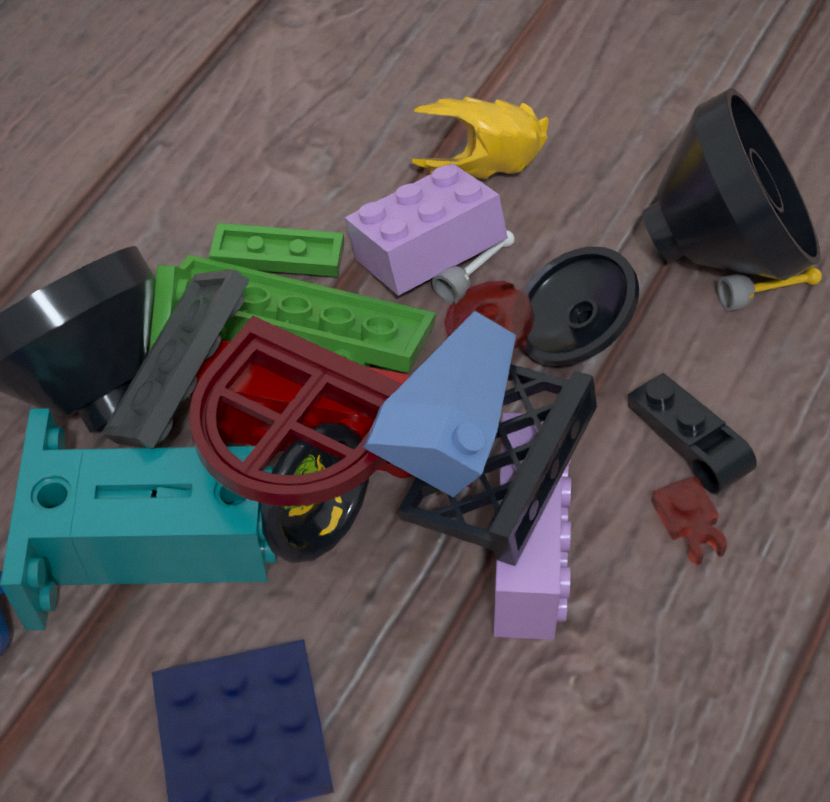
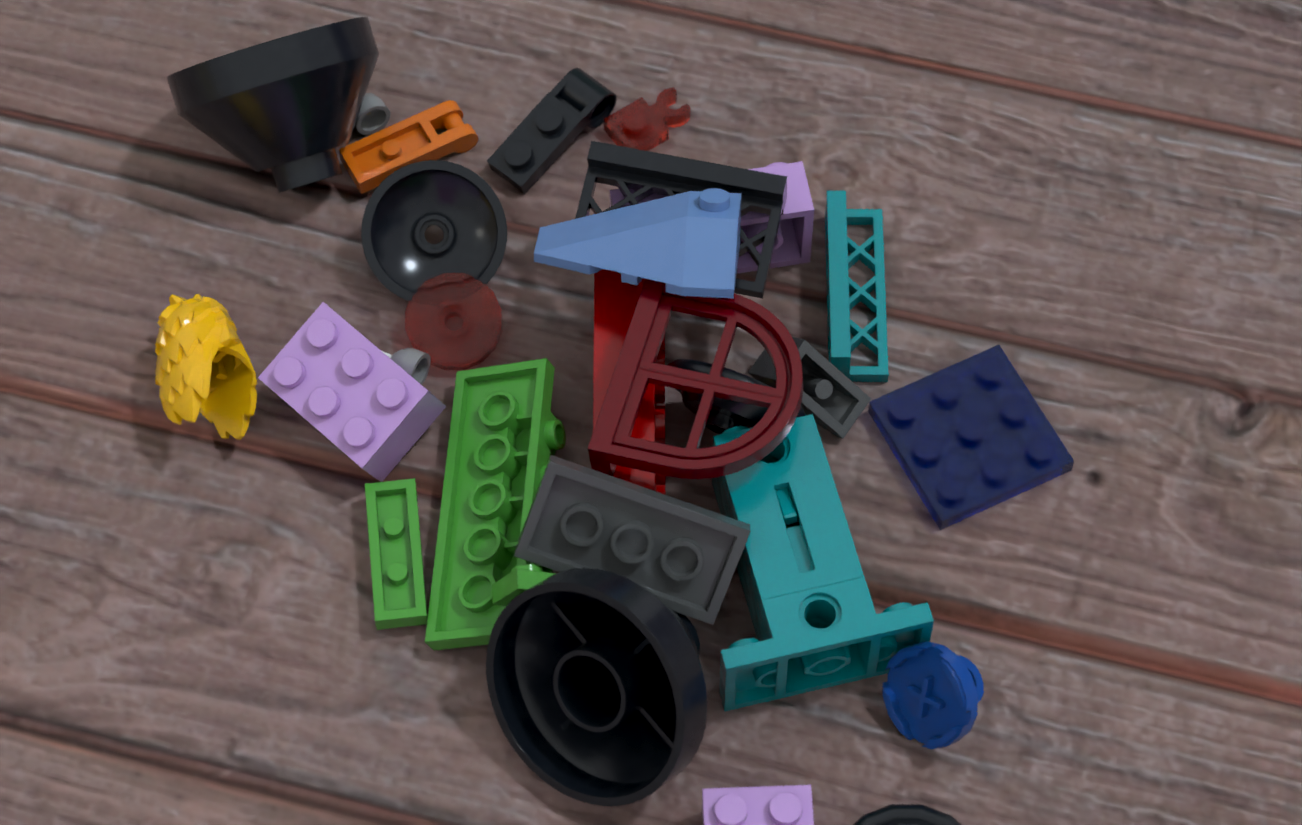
camera: 105 degrees left, 5 degrees up
(332, 581) = (826, 390): none -> dark grey slope
(445, 641) = (839, 285): none -> teal fence
(692, 316) = (406, 143): none -> orange plate

